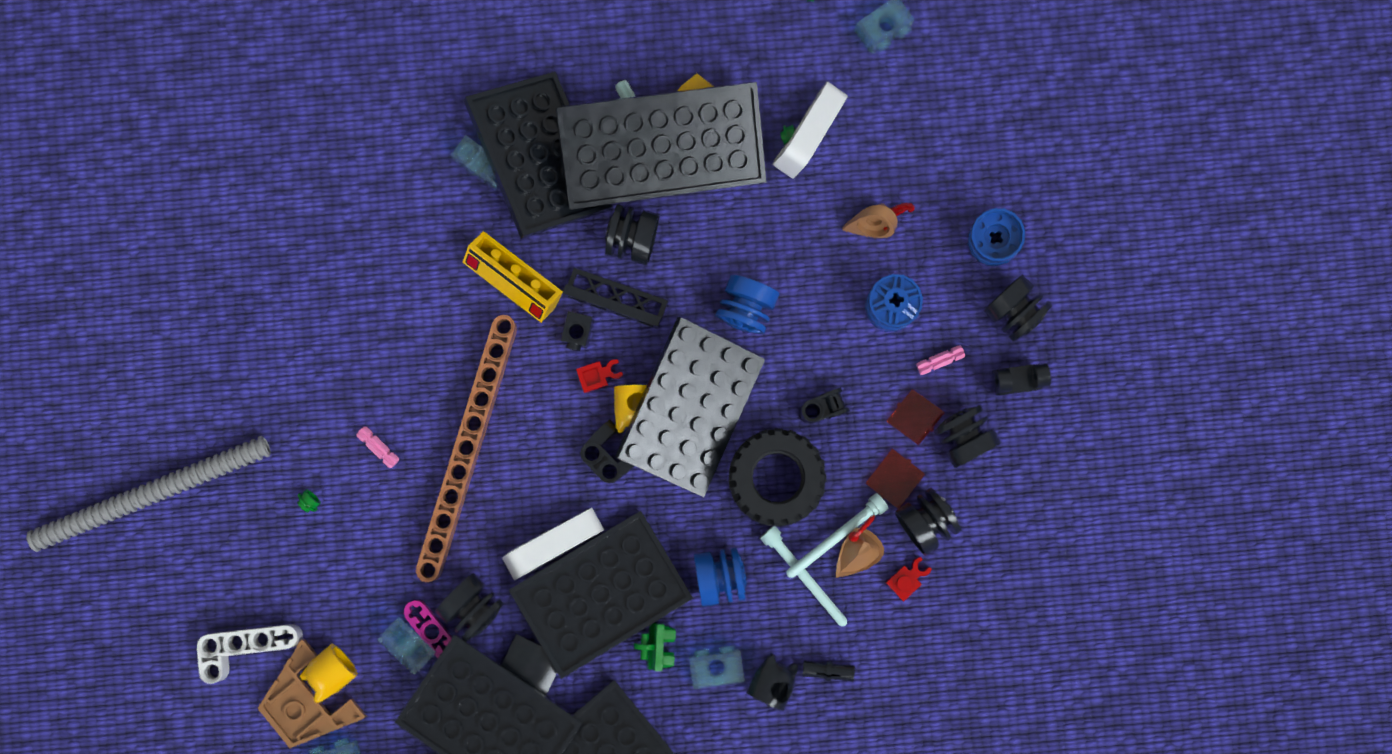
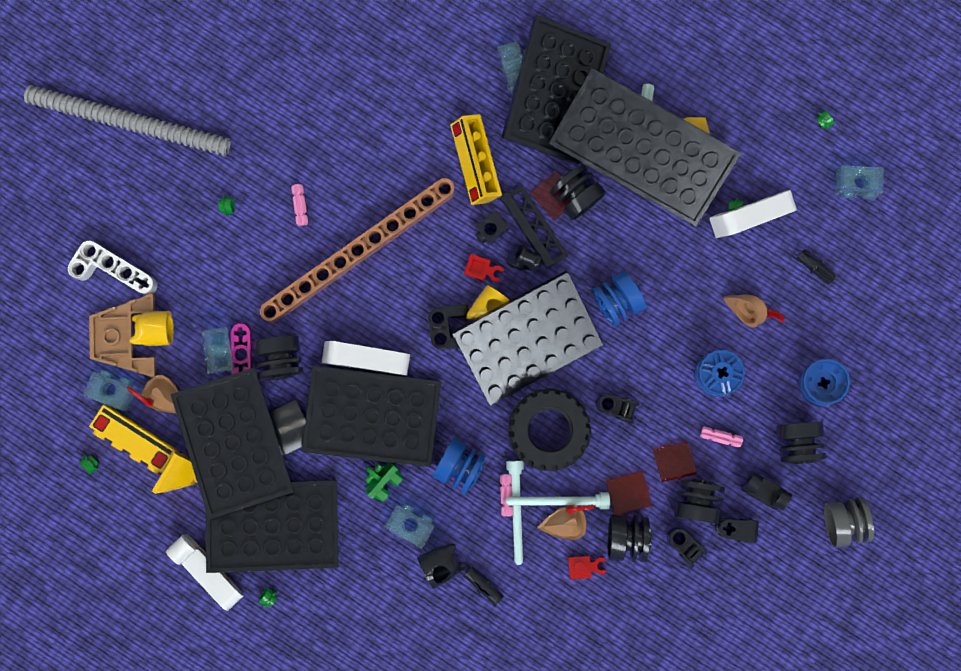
camera: 40 degrees right, 0 degrees up
(381, 731) = (157, 394): none -> medium nougat piece
(605, 264) = (544, 198): none -> clear red piece
(629, 335) = (523, 258): none -> black piece
(781, 567) = (506, 491): none -> bright pink axle
(905, 134) = (816, 267): none -> black axle
(989, 487) = (688, 548): none -> black piece
(1024, 432) = (741, 529): none -> black piece
(1117, 349) = (849, 521): none -> dark grey wheel

